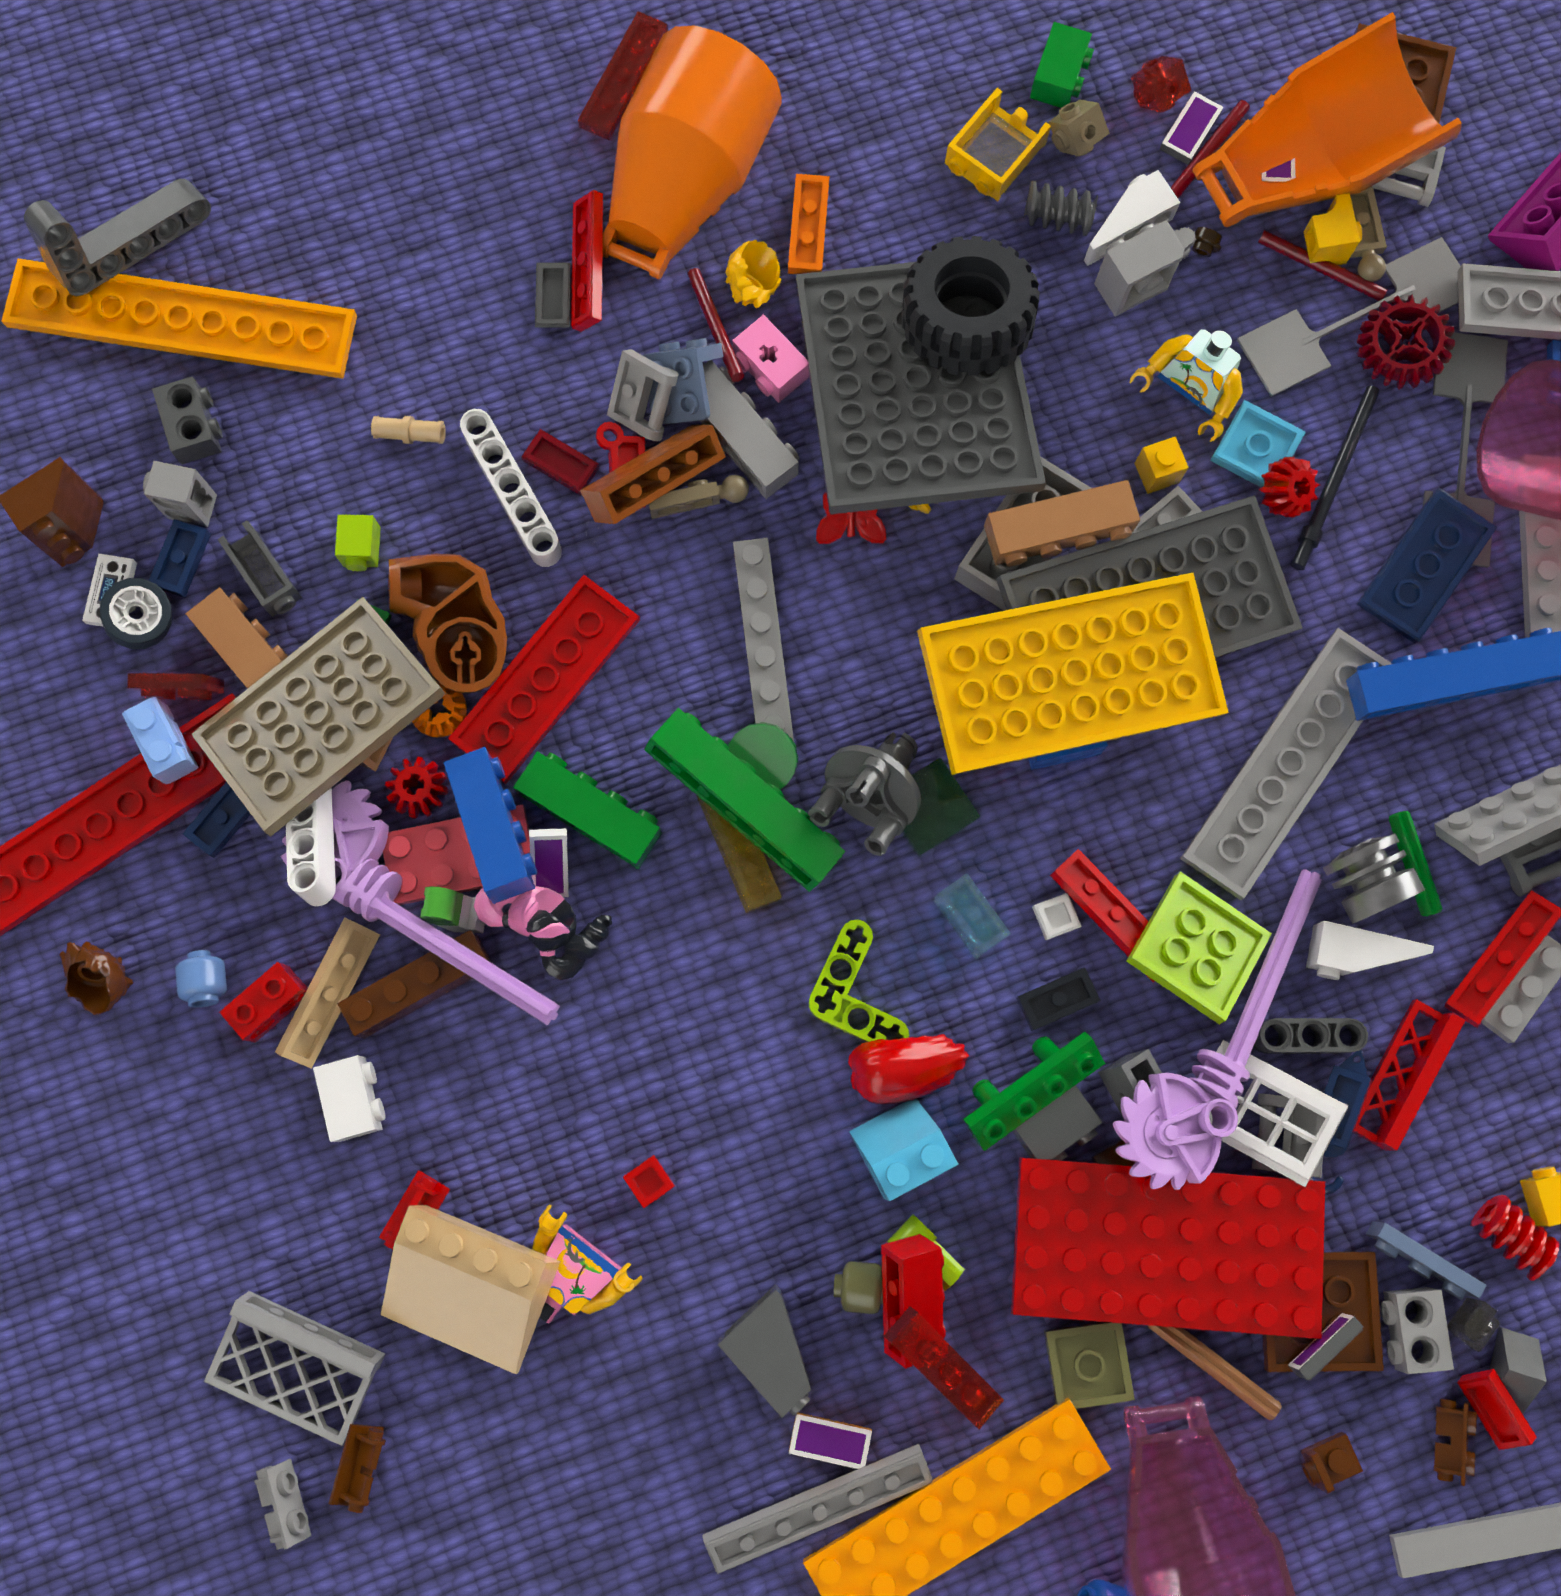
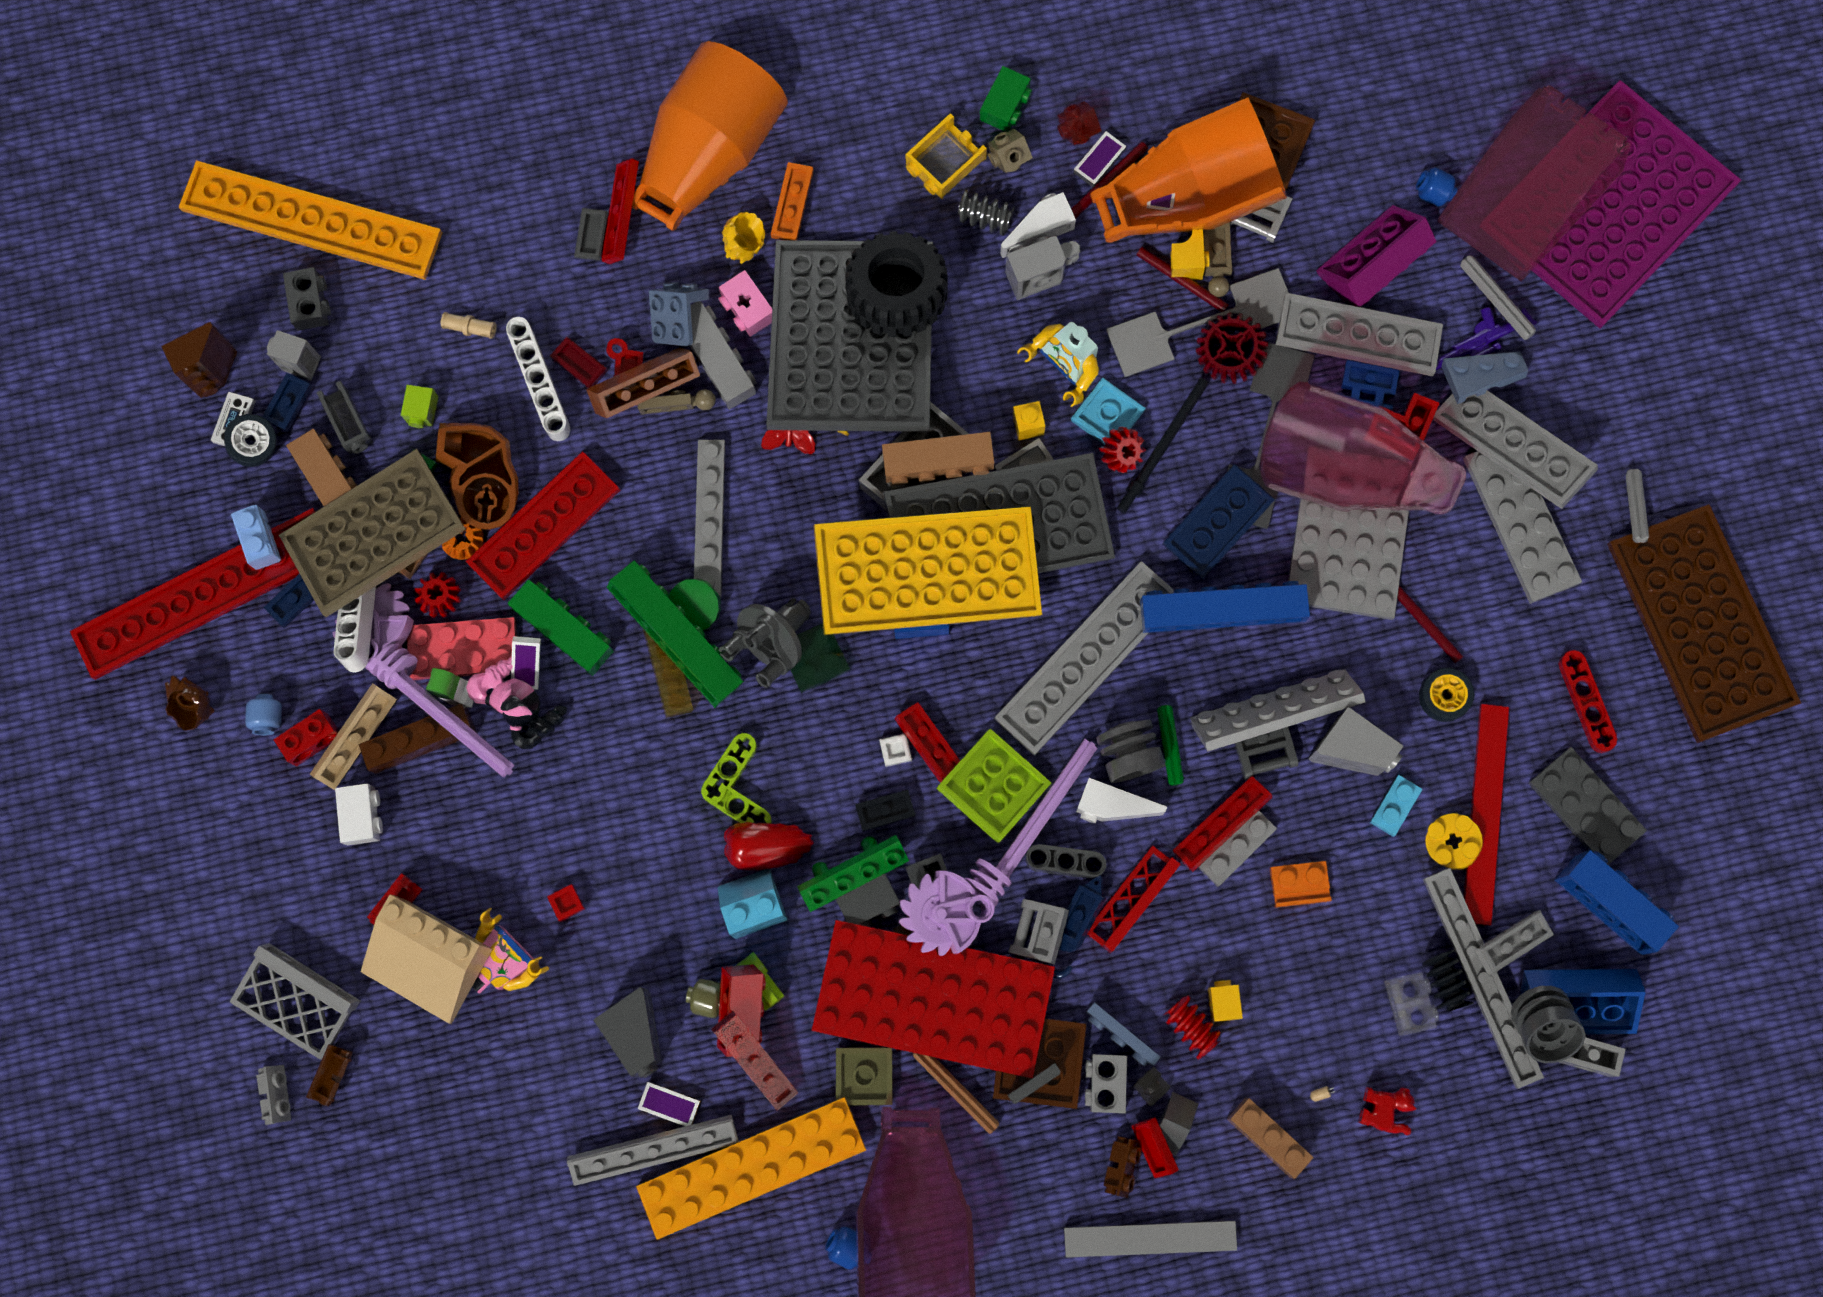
camera: 15 degrees right, 0 degrees up
(117, 243) = (274, 157): dark grey beam -> none
(167, 685) = (265, 498): clear red plate -> none
(490, 826) = (485, 629): blue brick -> none
(622, 76) = (668, 69): clear red plate -> none
(632, 393) = (638, 317): light grey plate -> none
(715, 324) = (709, 272): dark red bar -> none
(971, 916) = (829, 741): clear light blue brick -> none
(1206, 241) = (1094, 251): dark brown plate -> none
(1298, 1093) = (1045, 900): white piece -> none
(1330, 1462) = (1028, 1169): reddish brown bracket -> none

